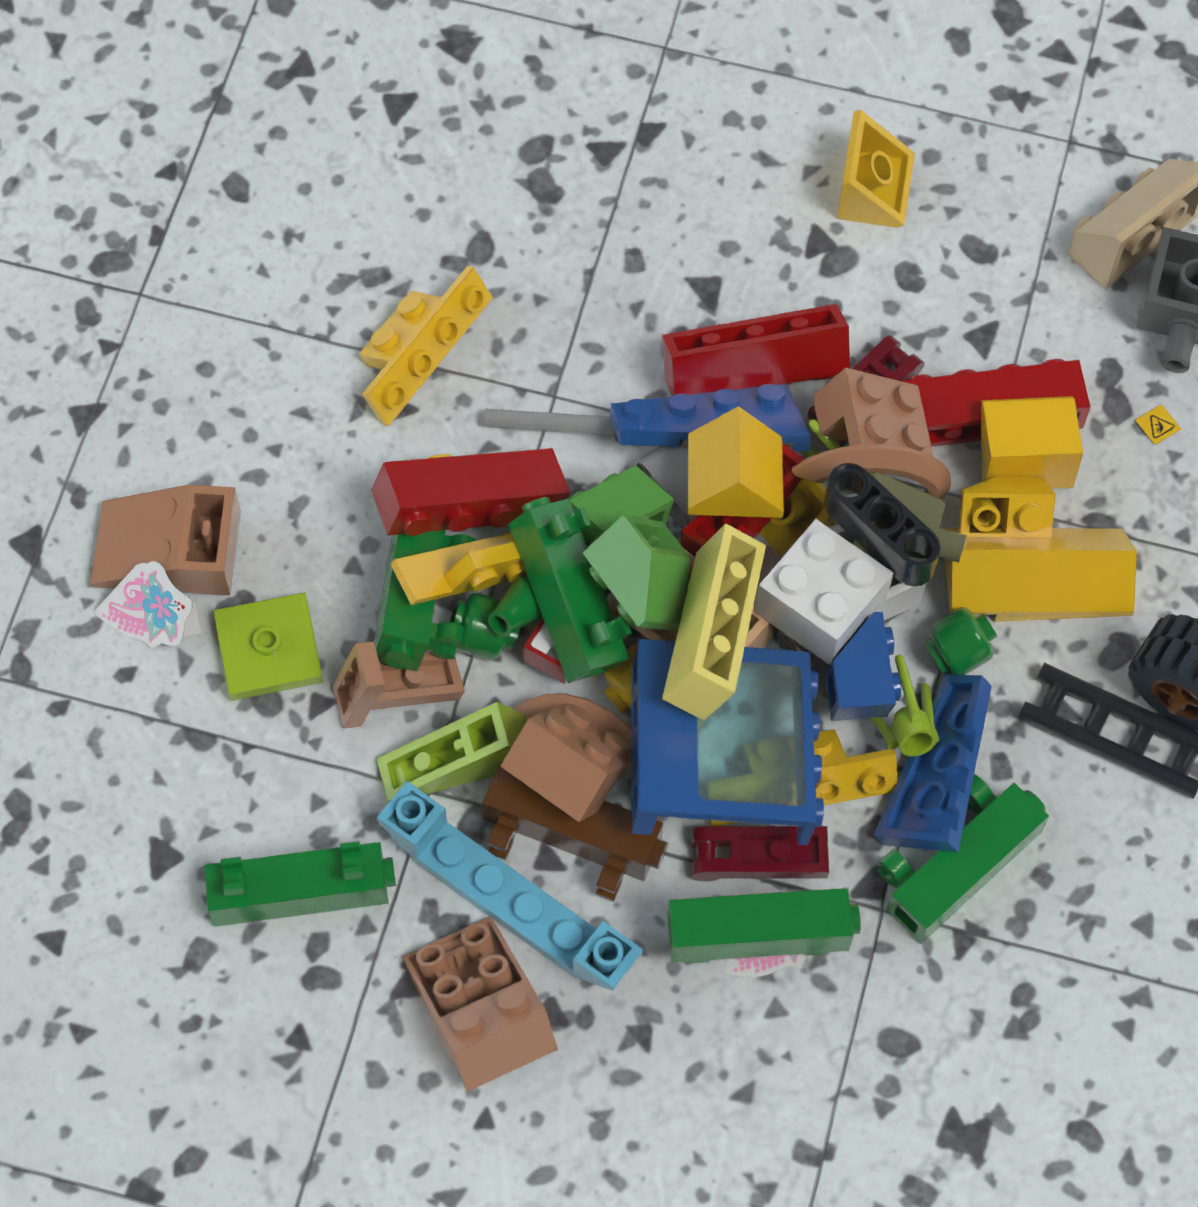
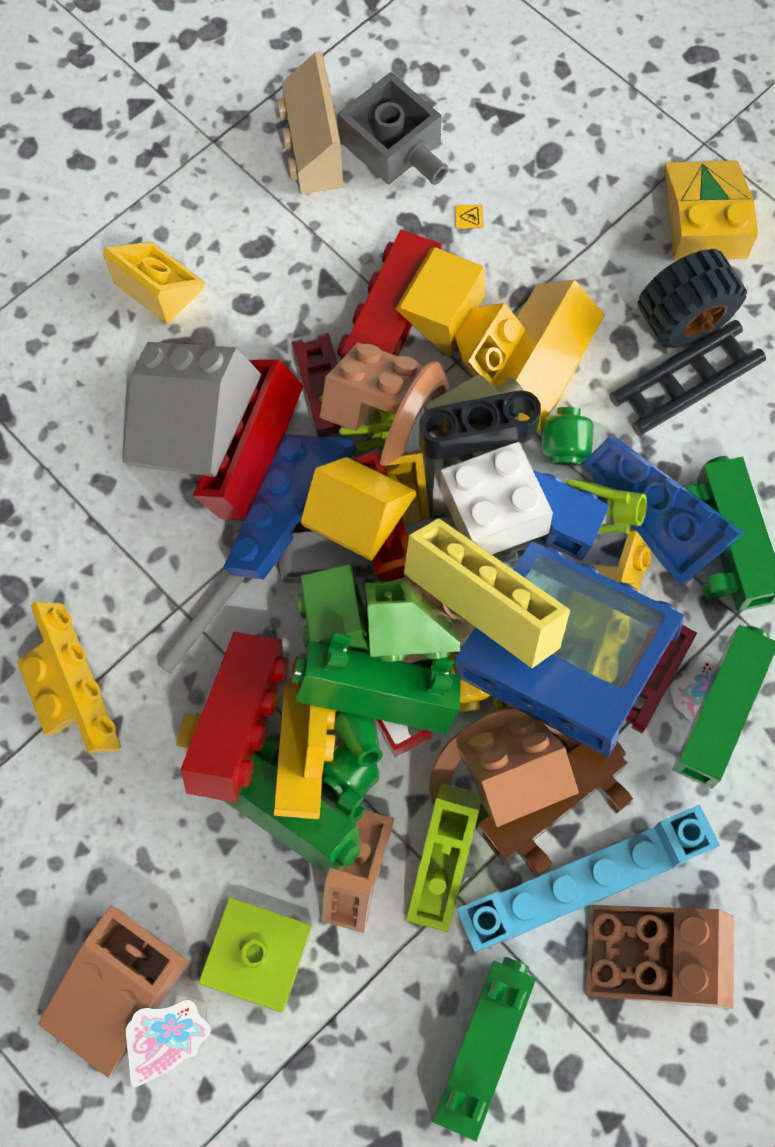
camera: 55 degrees left, 5 degrees up
(749, 277) = (186, 406): none -> light grey slope

